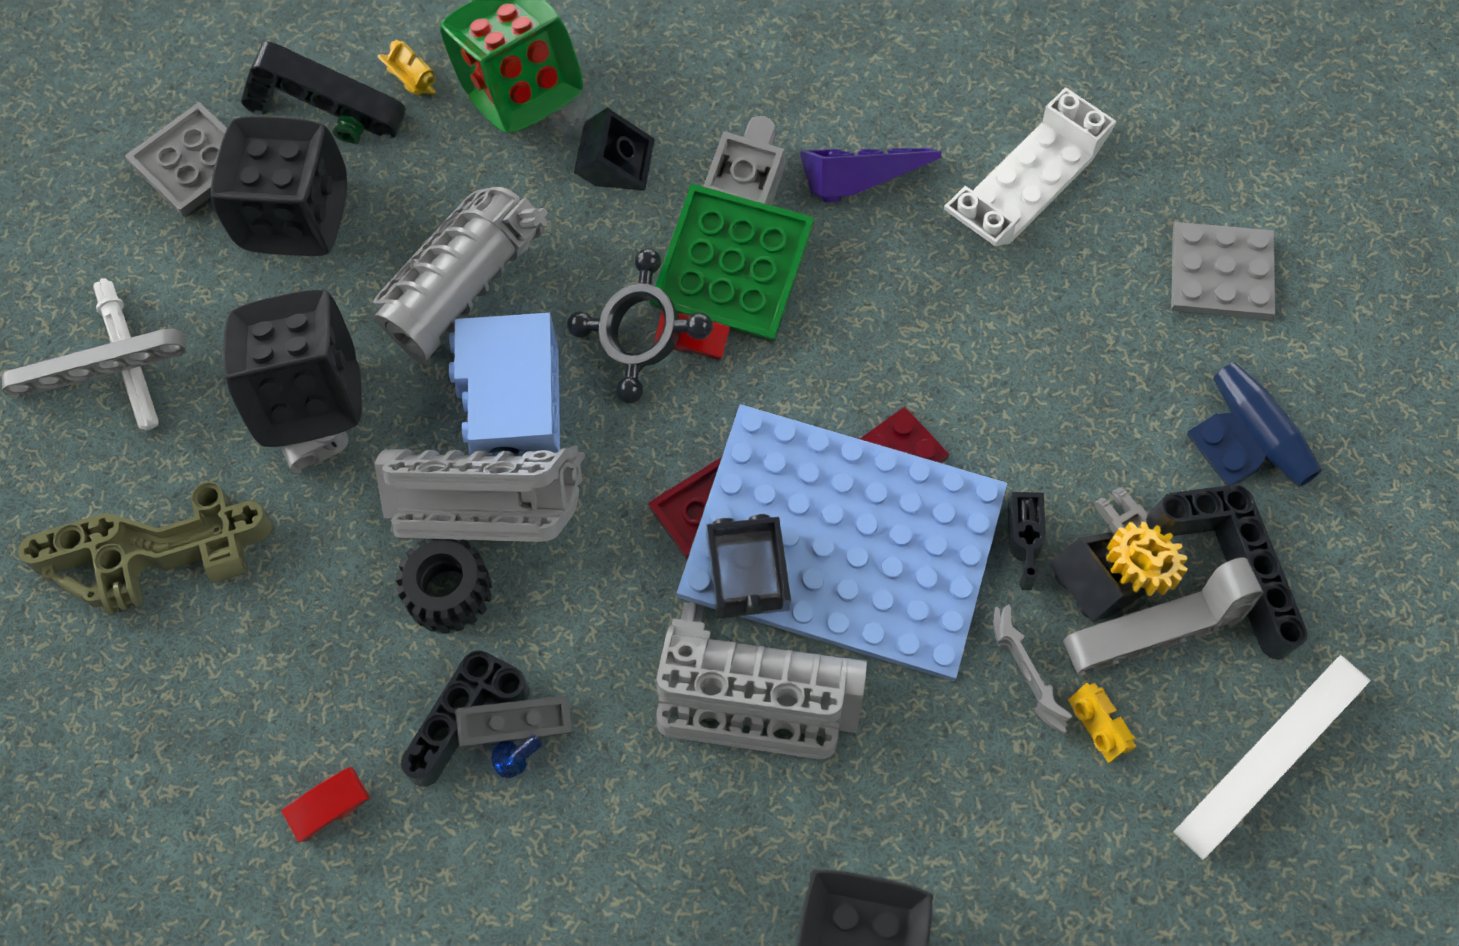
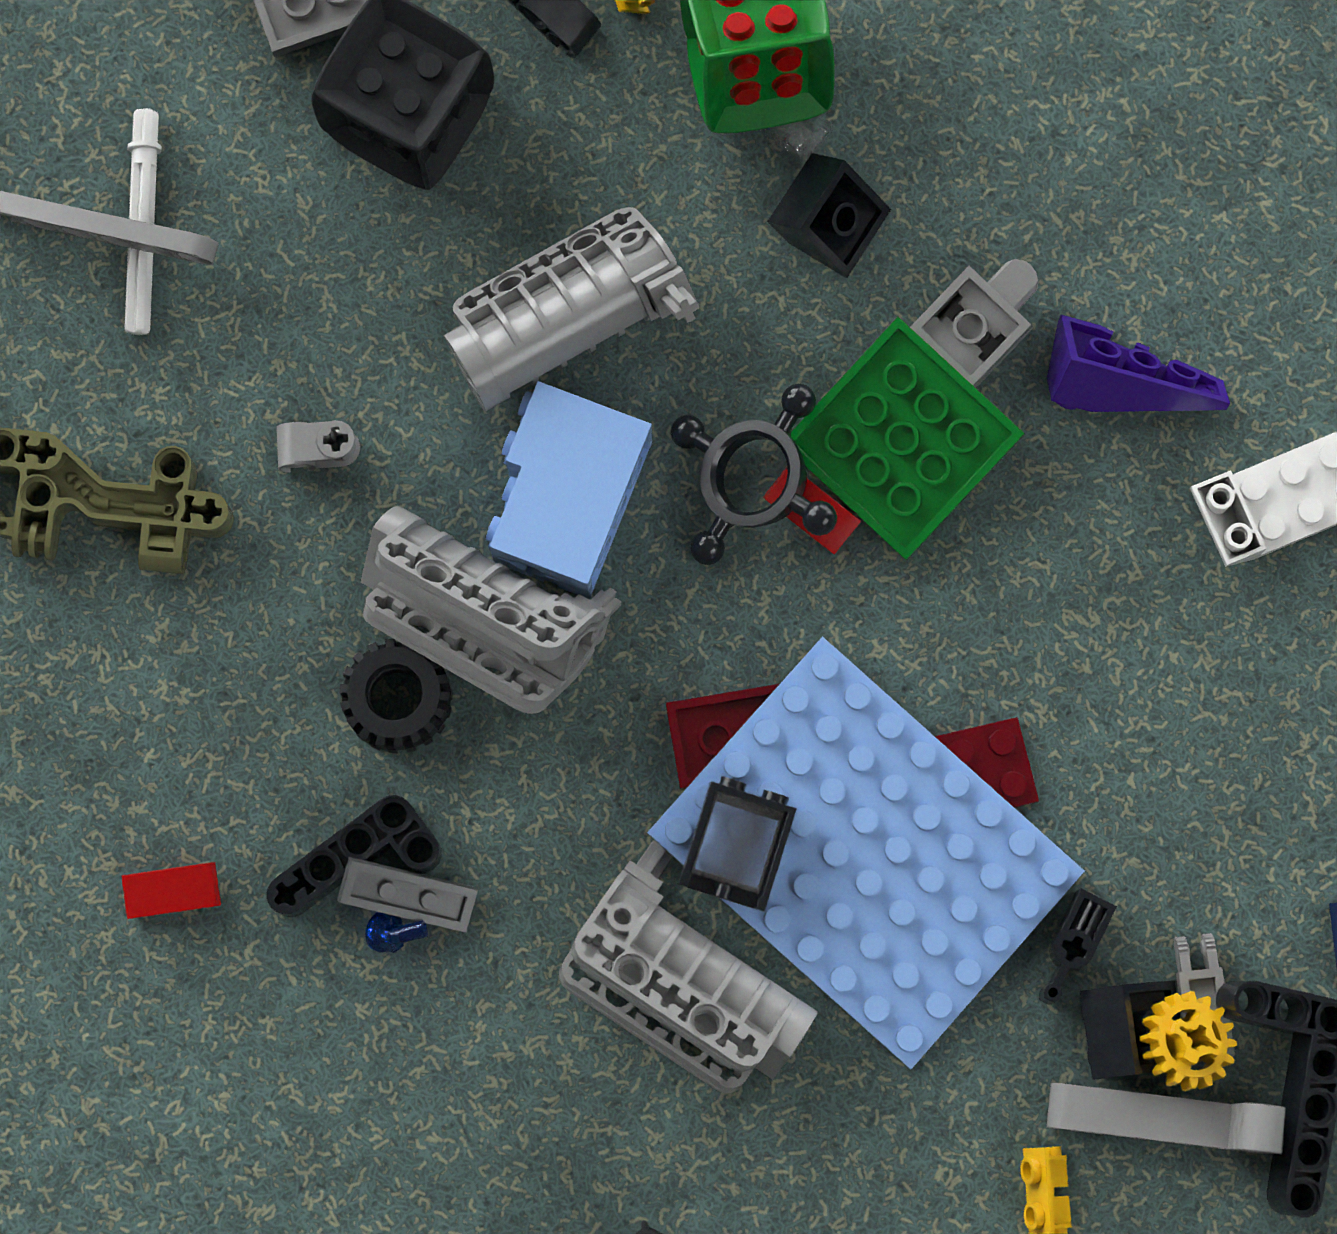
camera: 20 degrees right, 15 degrees up
(292, 368) = (327, 357): black piece -> none
(348, 129) = (518, 26): dark green bush -> none
(1010, 638) = (990, 1150): light grey piece -> none

